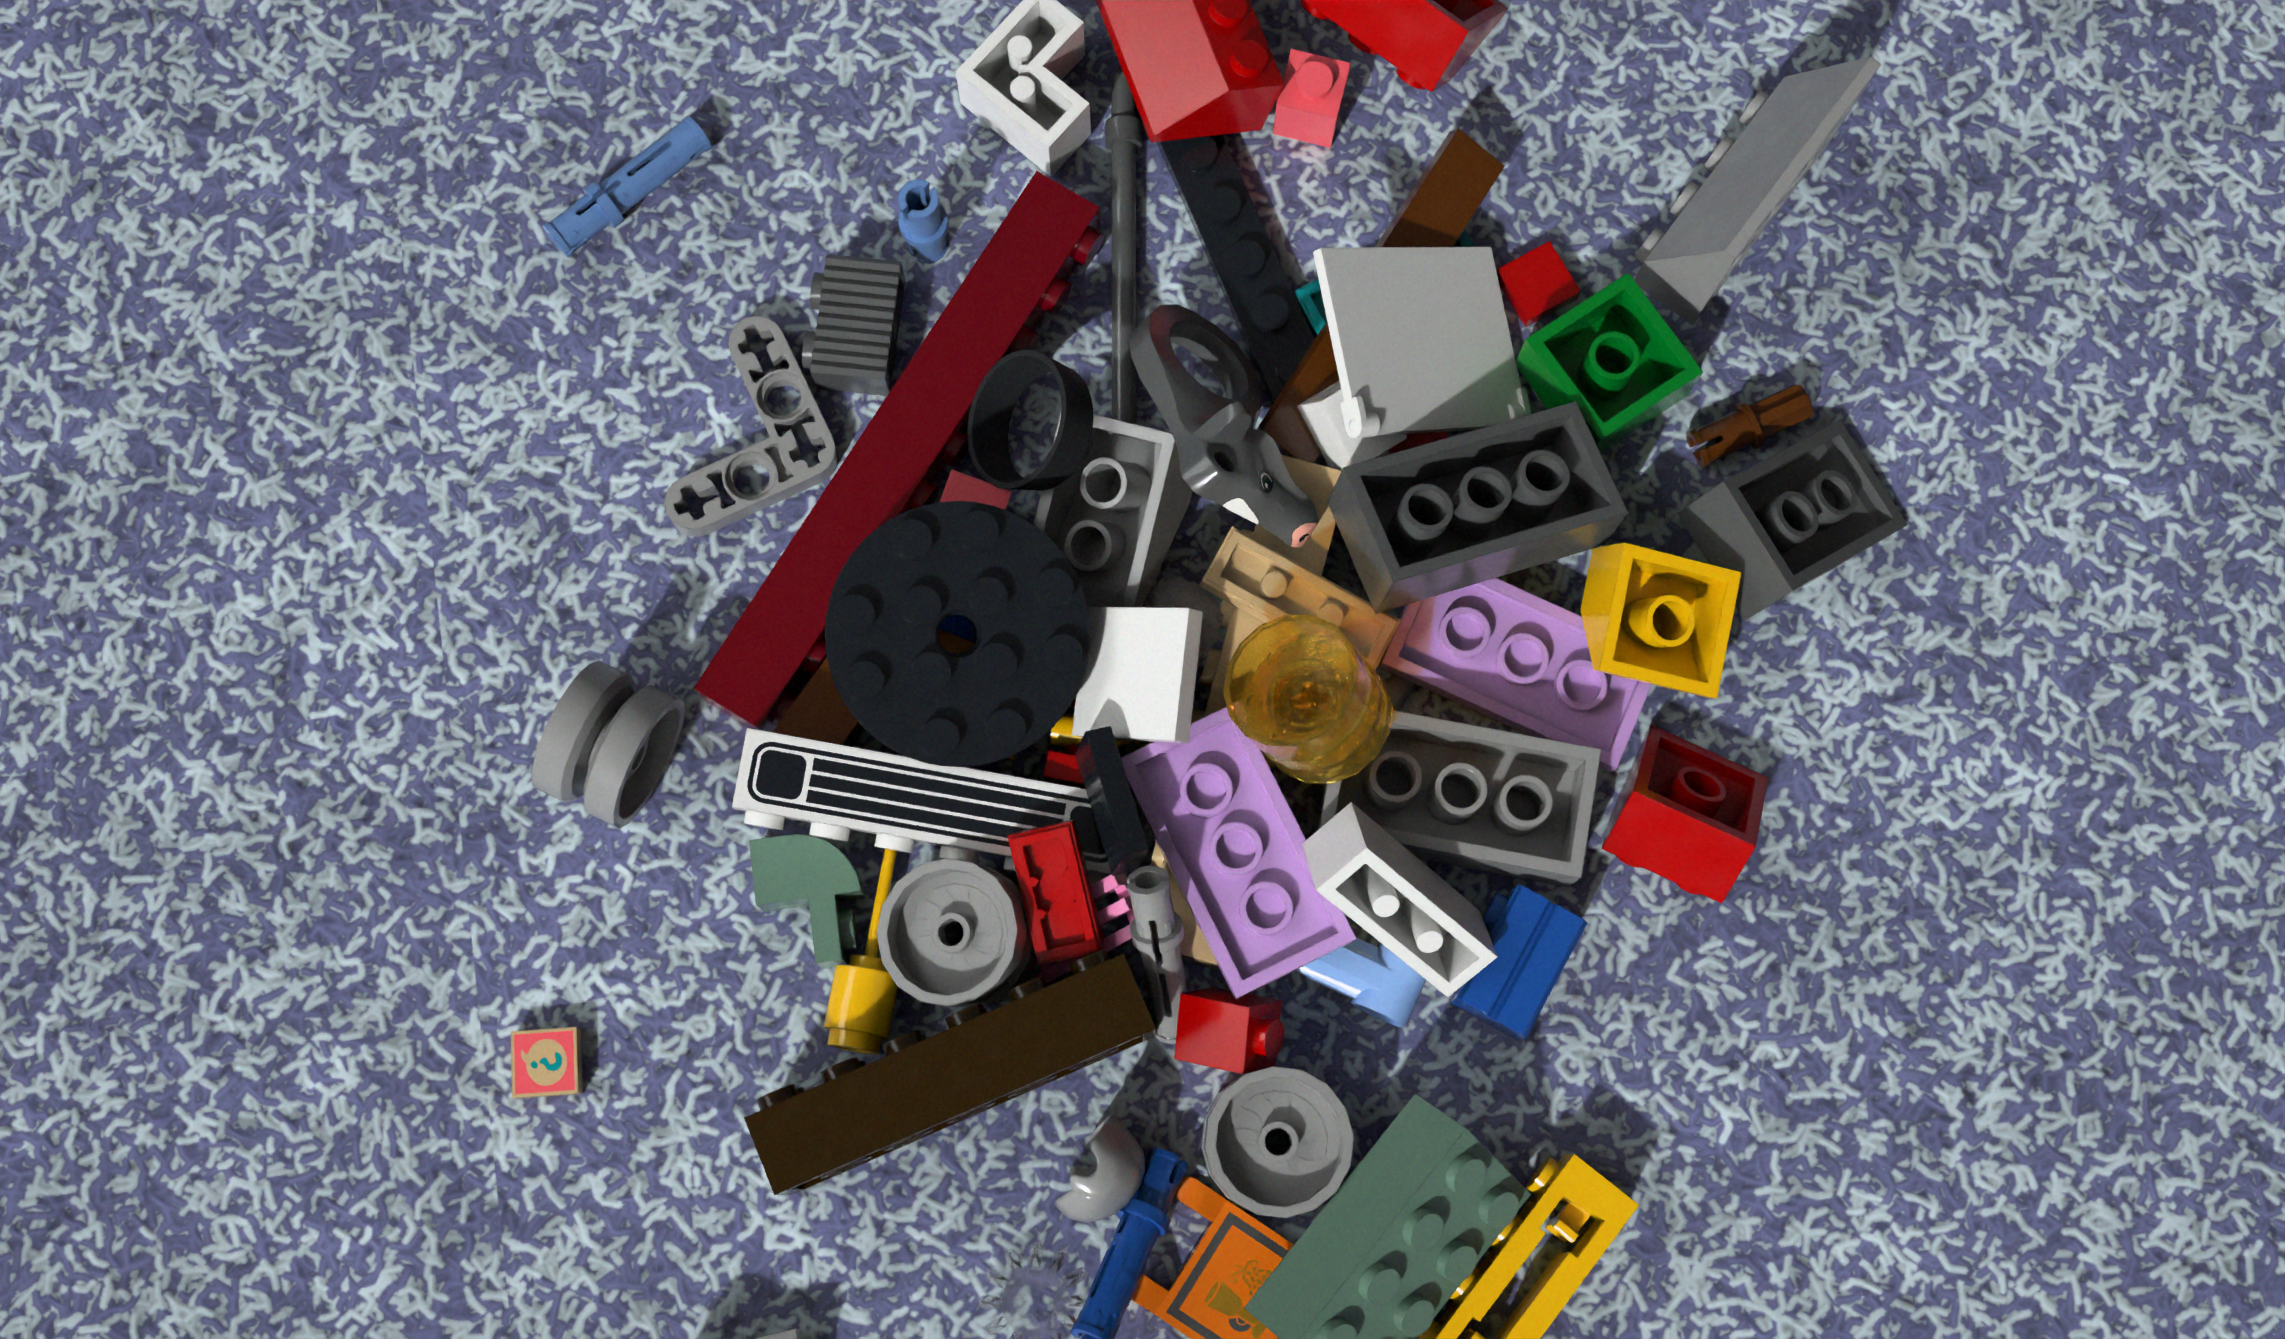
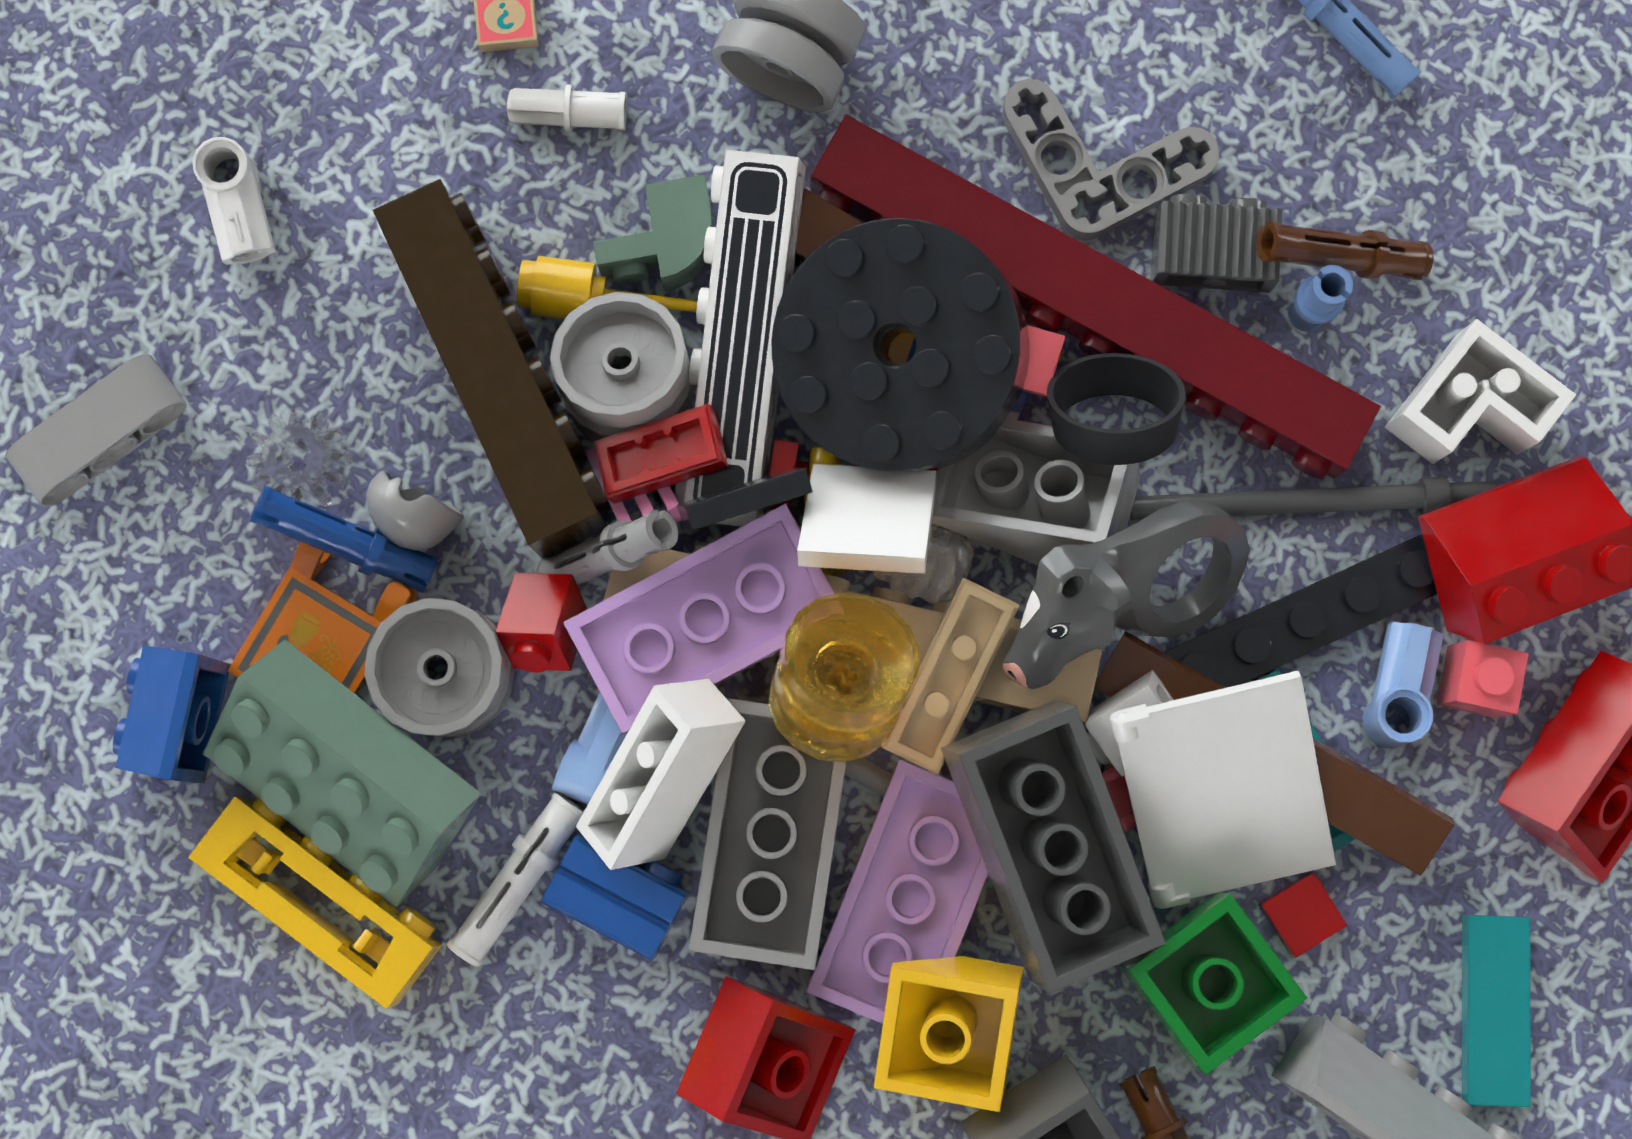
camera: 90 degrees right, 5 degrees up
(657, 995) = (567, 108): none -> white axle
(876, 178) = (1366, 254): none -> reddish brown pin
(1307, 172) = (1404, 678): none -> light blue piece
(1561, 1115) = (517, 878): none -> white pin
(1630, 111) = (1496, 1011): none -> teal tile

